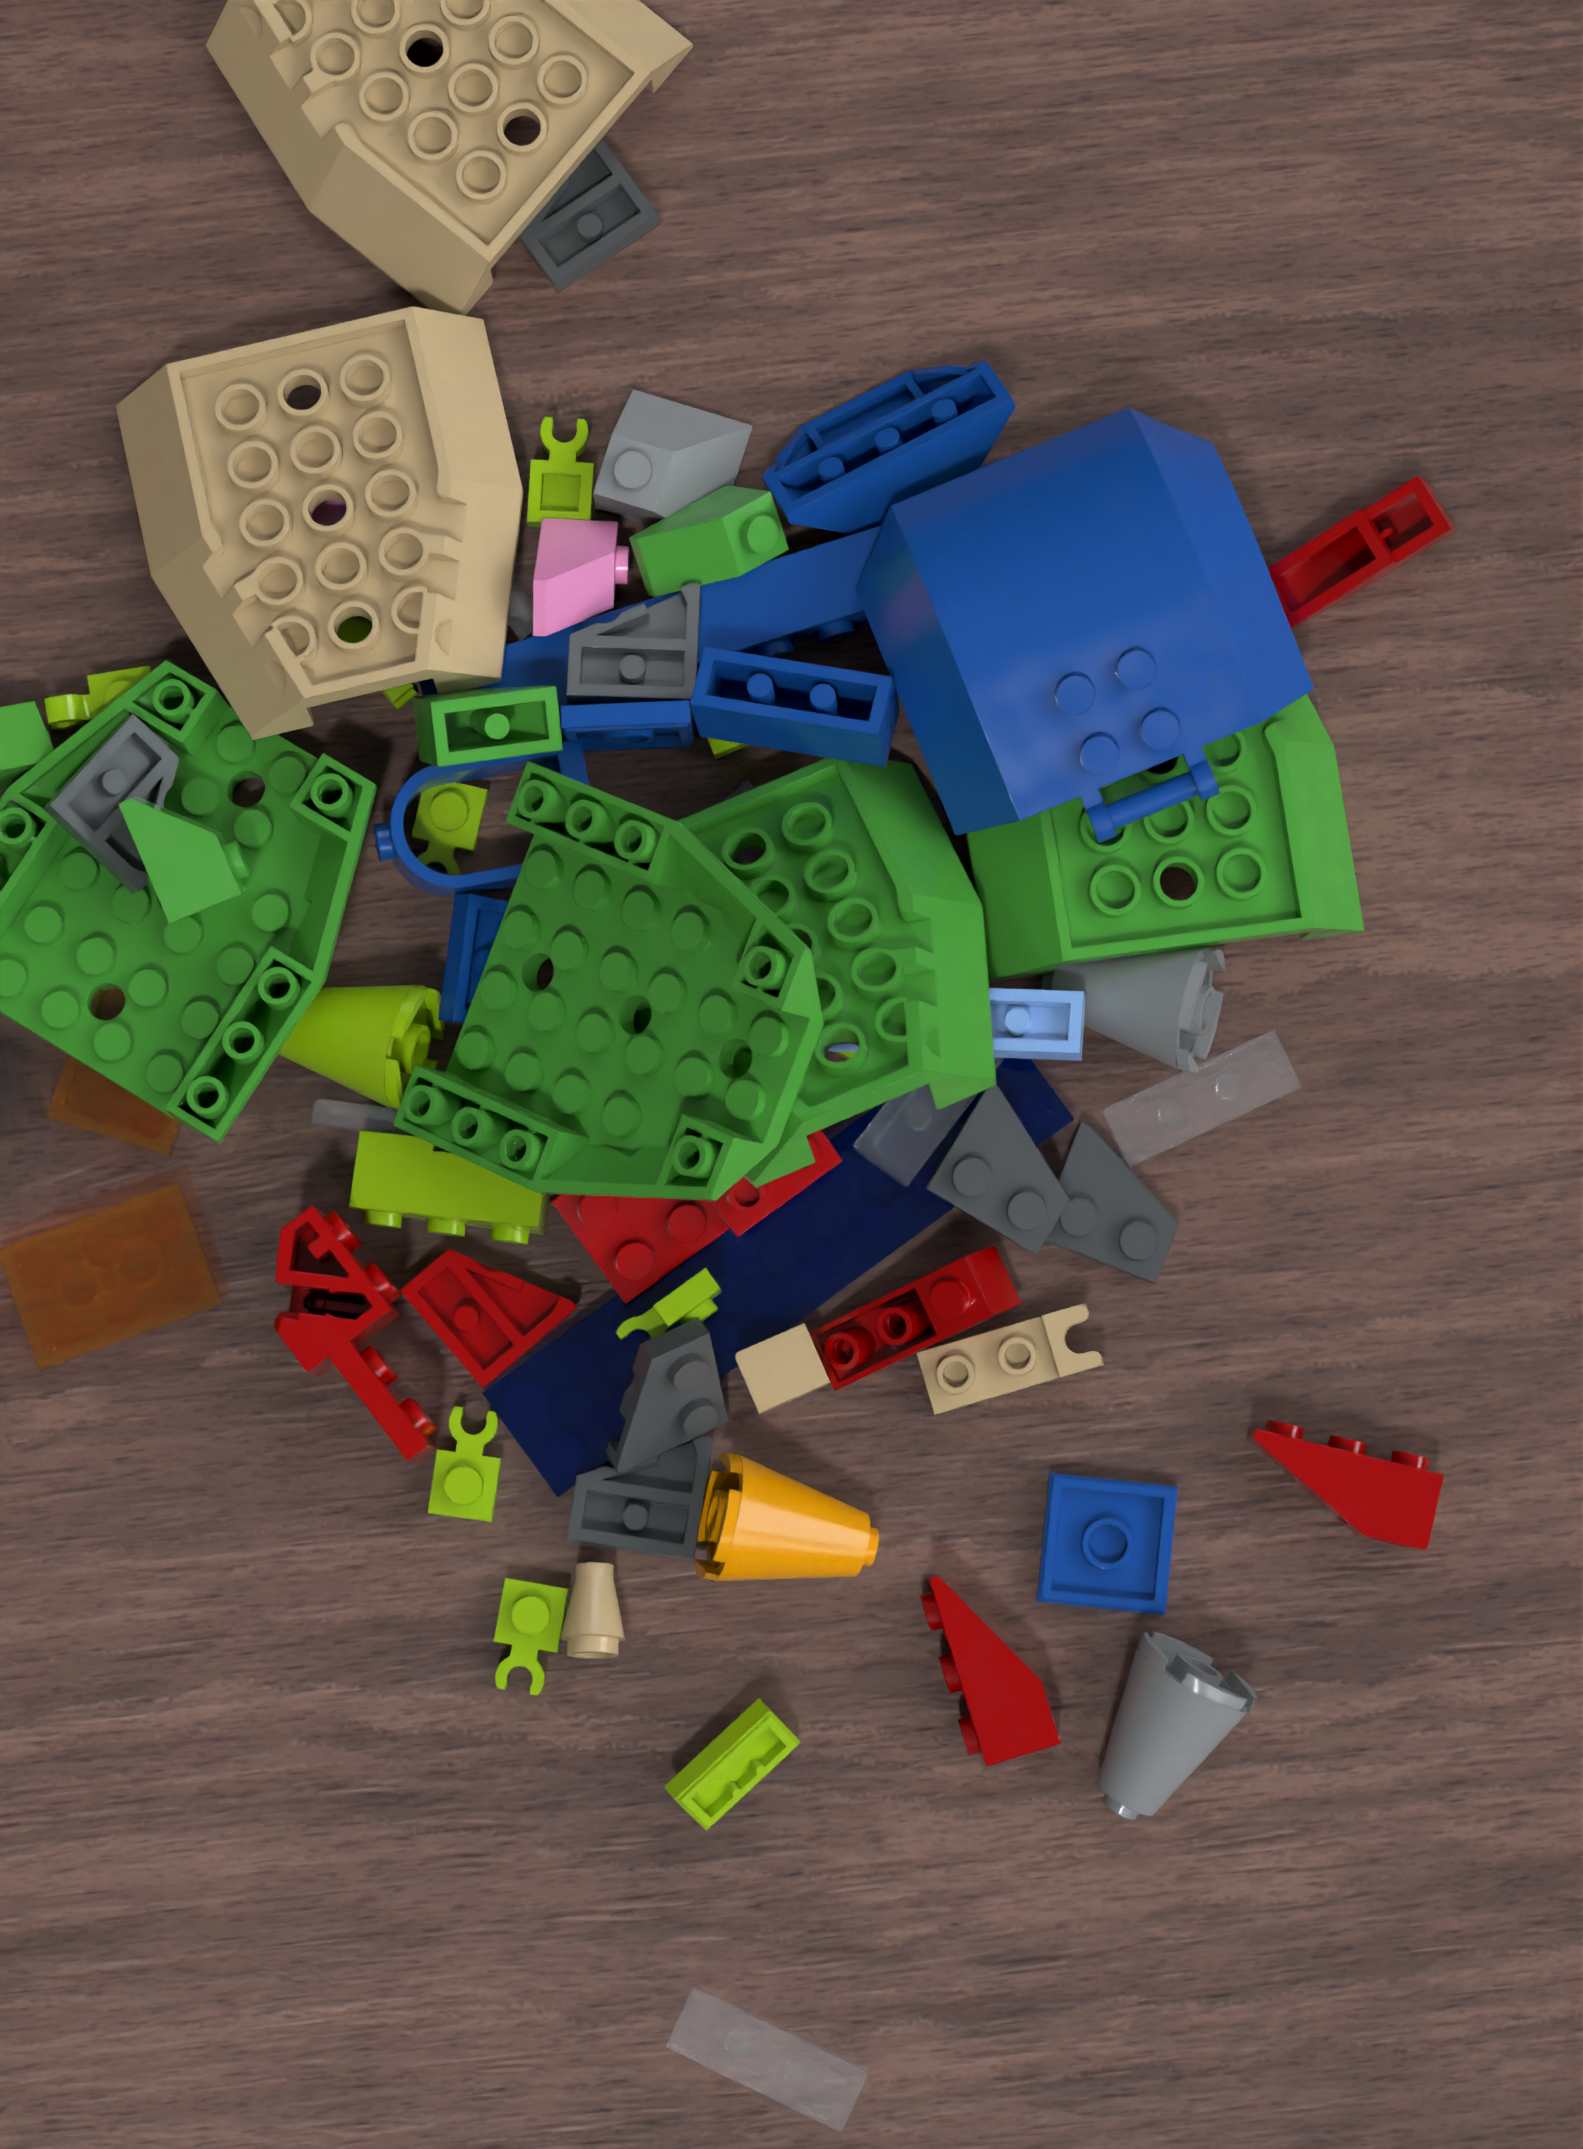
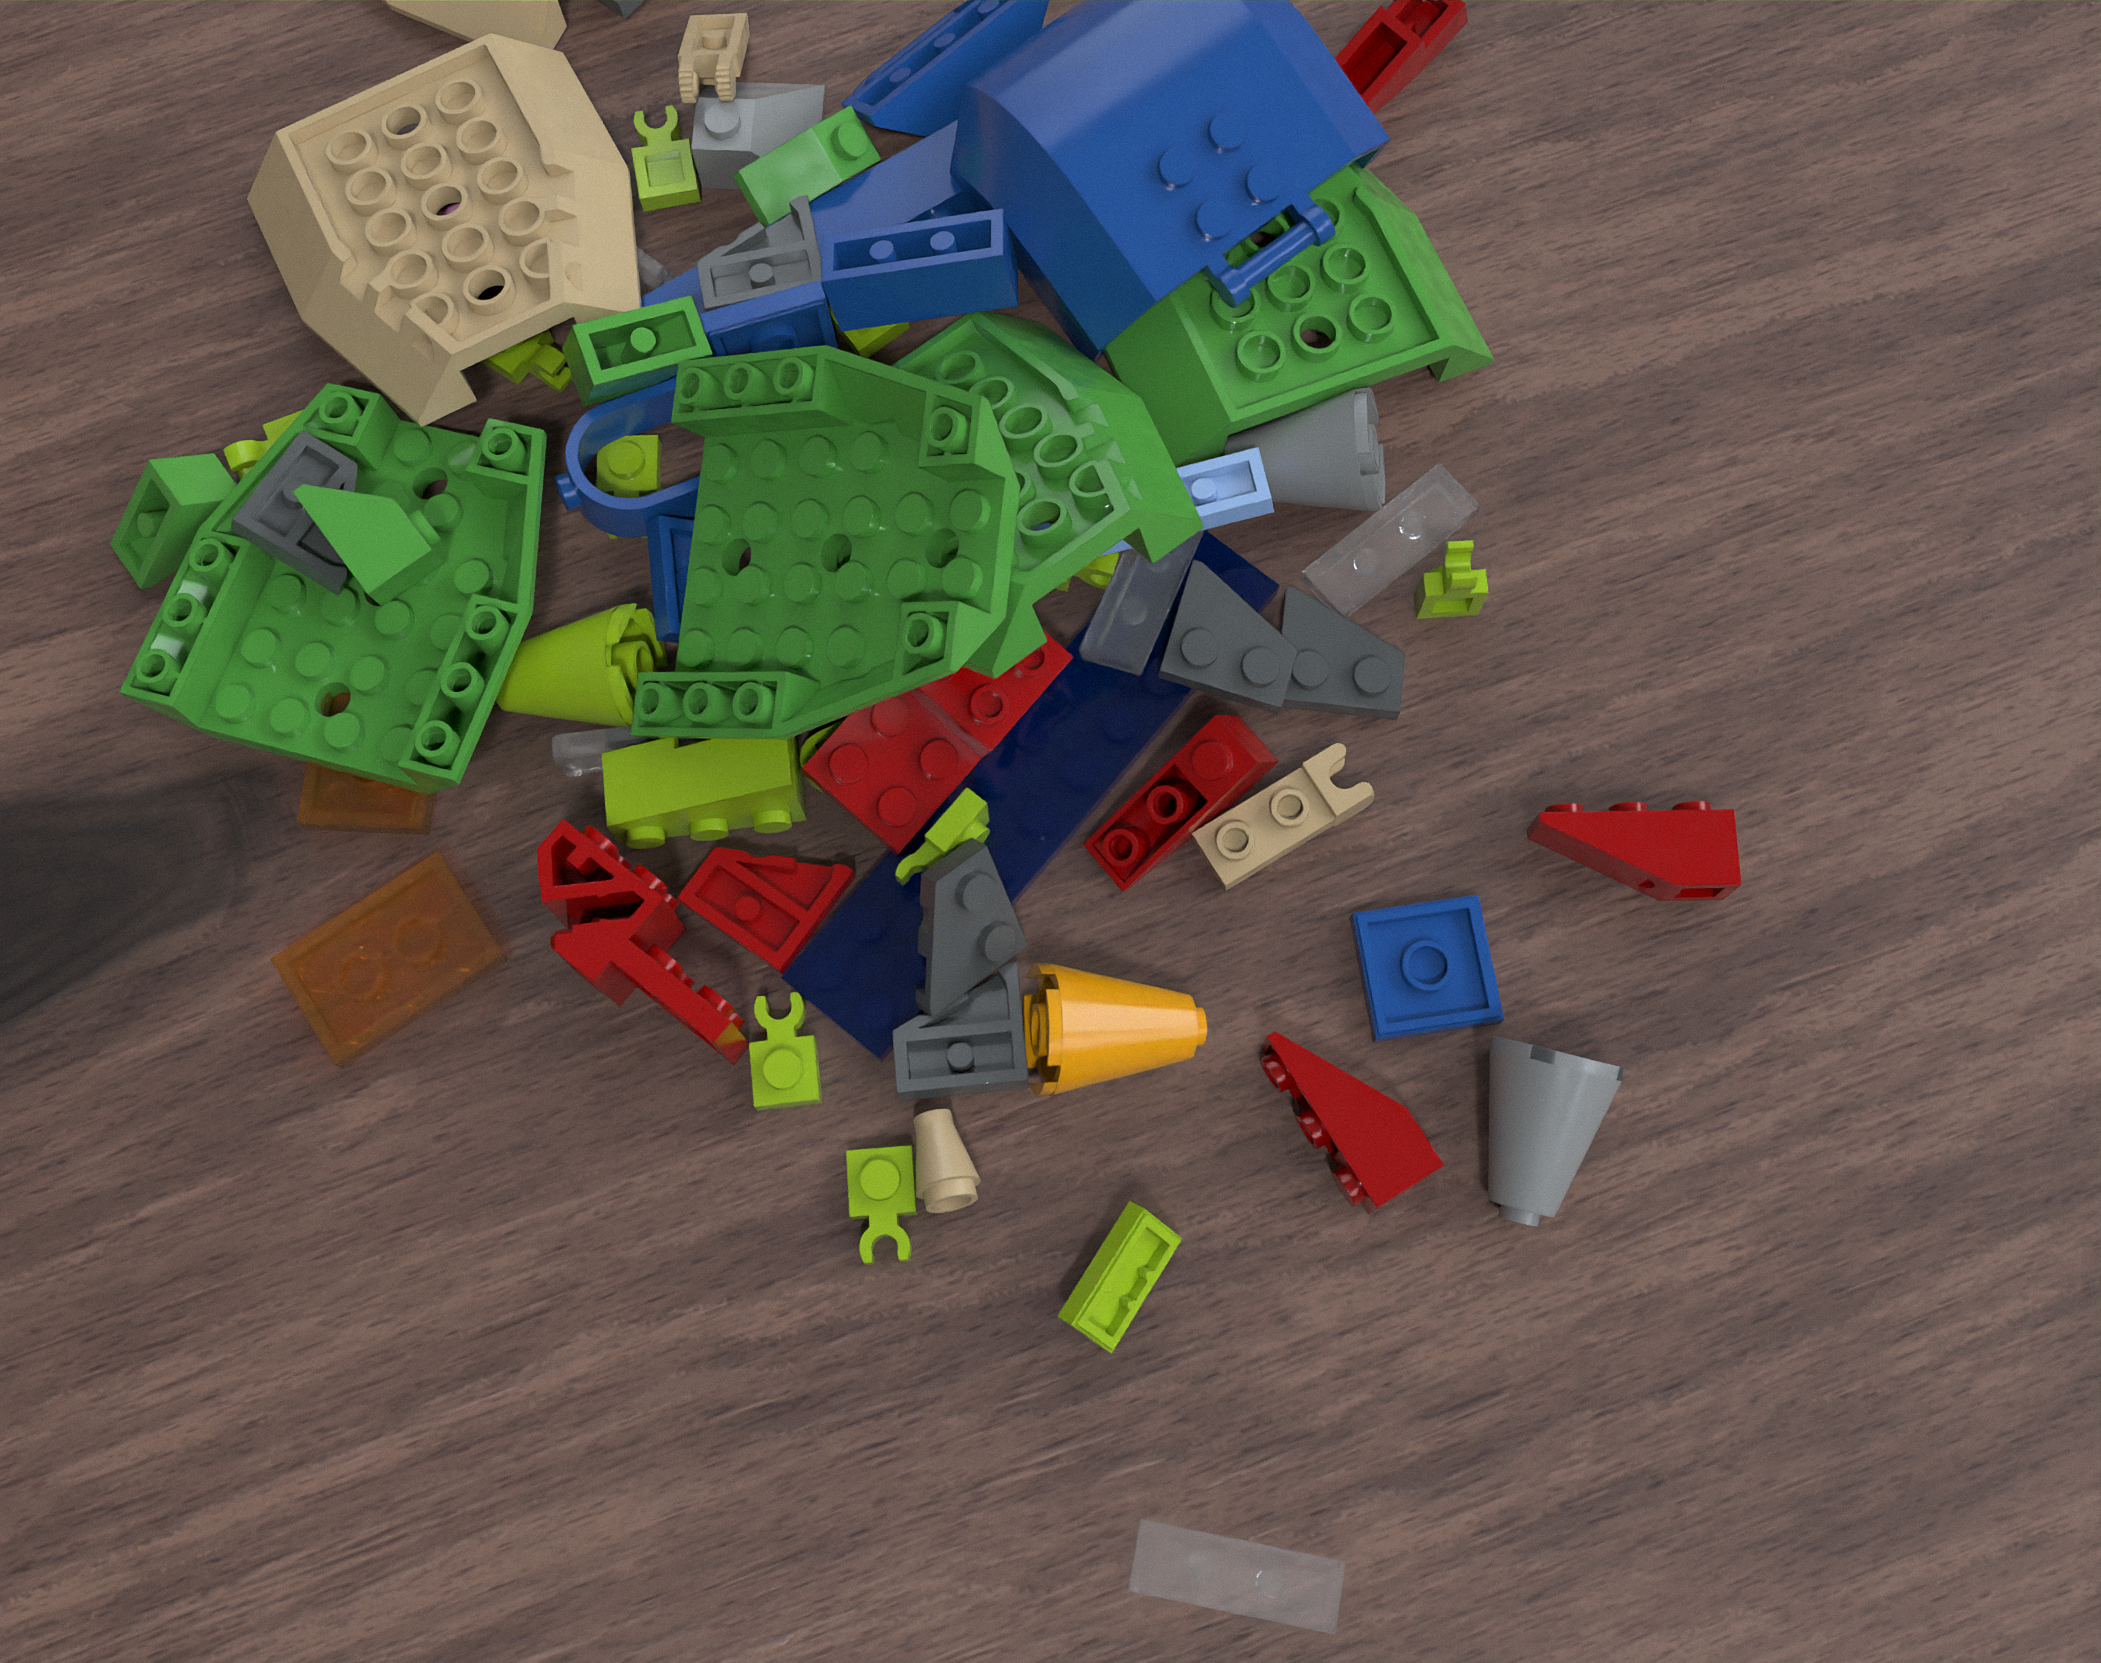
camera: 10 degrees left, 10 degrees down
(576, 572) = (693, 222): bright pink slope -> none
(642, 376) = (712, 54): none -> tan hinge
(782, 1368) = (1068, 877): tan panel -> none
(1243, 1168) = (1453, 587): none -> lime plate

